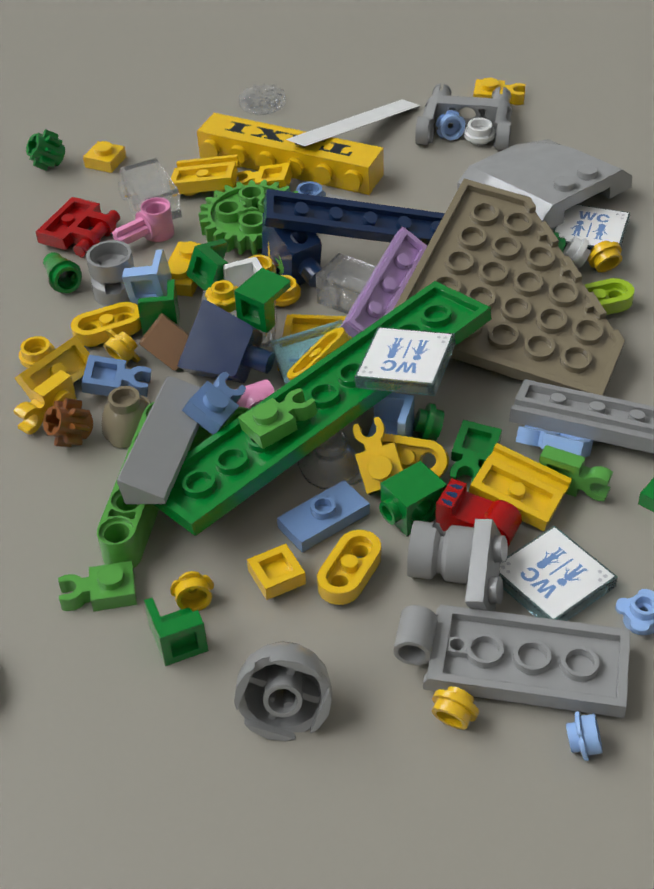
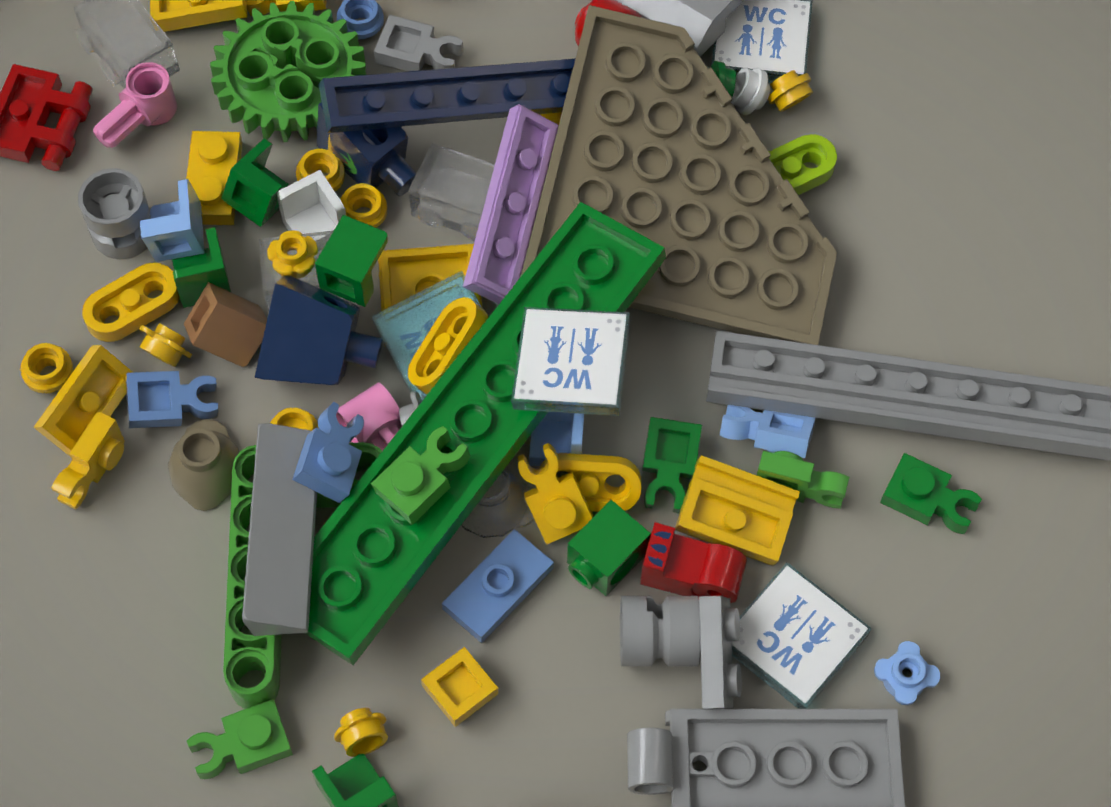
camera: 15 degrees left, 20 degrees up
(62, 273) = (39, 214): green cone -> none
(68, 422) = (129, 492): dark orange gear -> none
(346, 570) = (547, 666): yellow plate -> none
(429, 422) = (605, 427): green plate -> none

